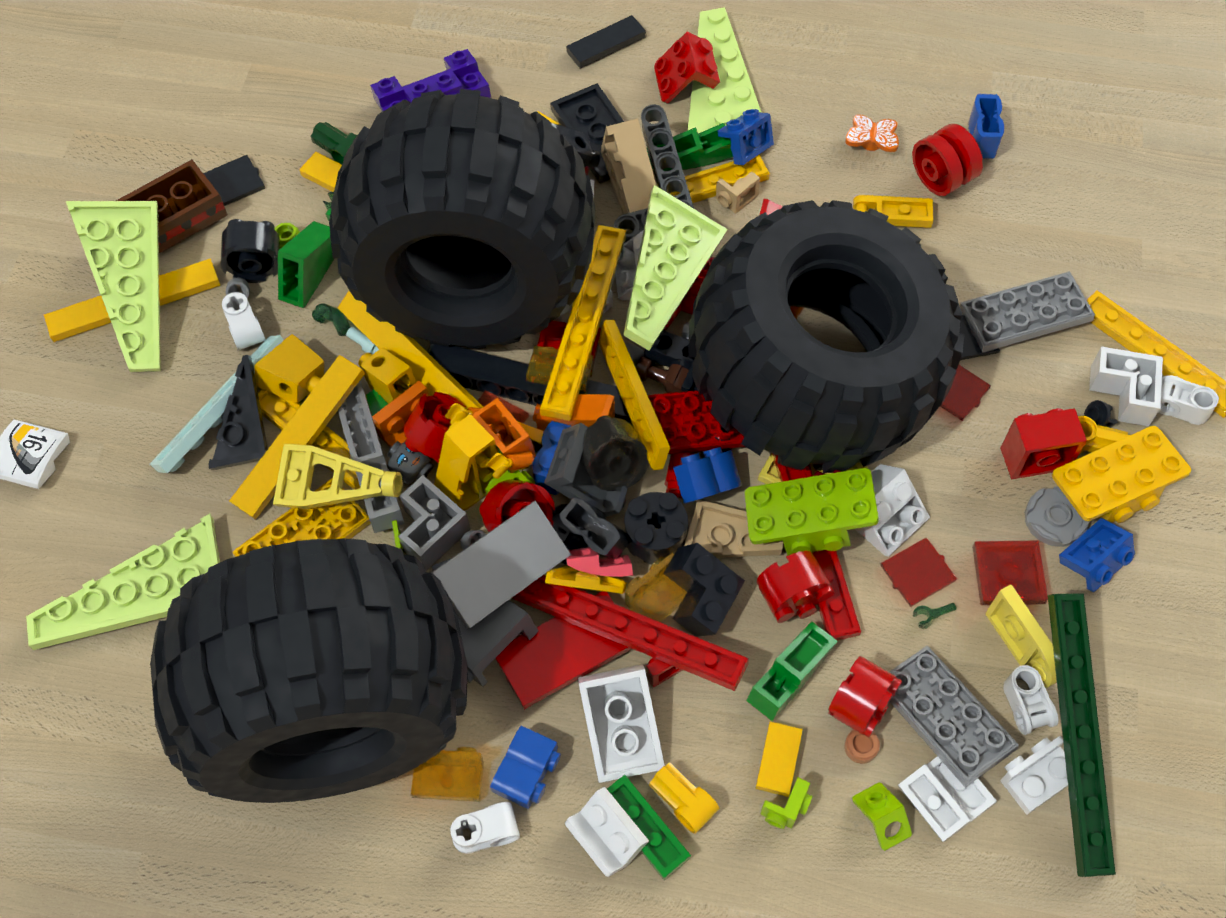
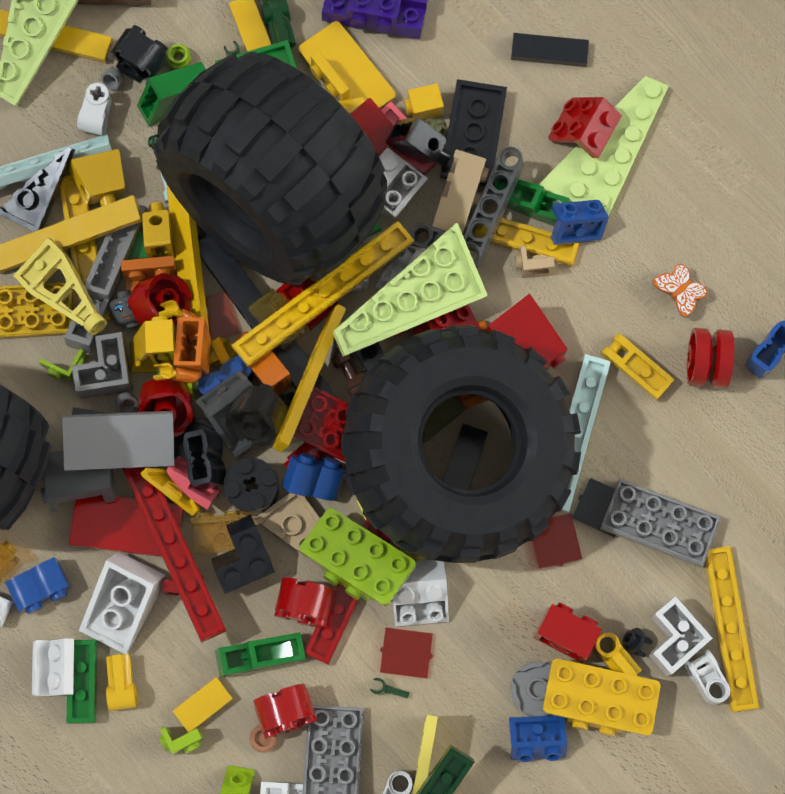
camera: 35 degrees right, 15 degrees up
(1008, 564) = (464, 703): clear red plate -> none

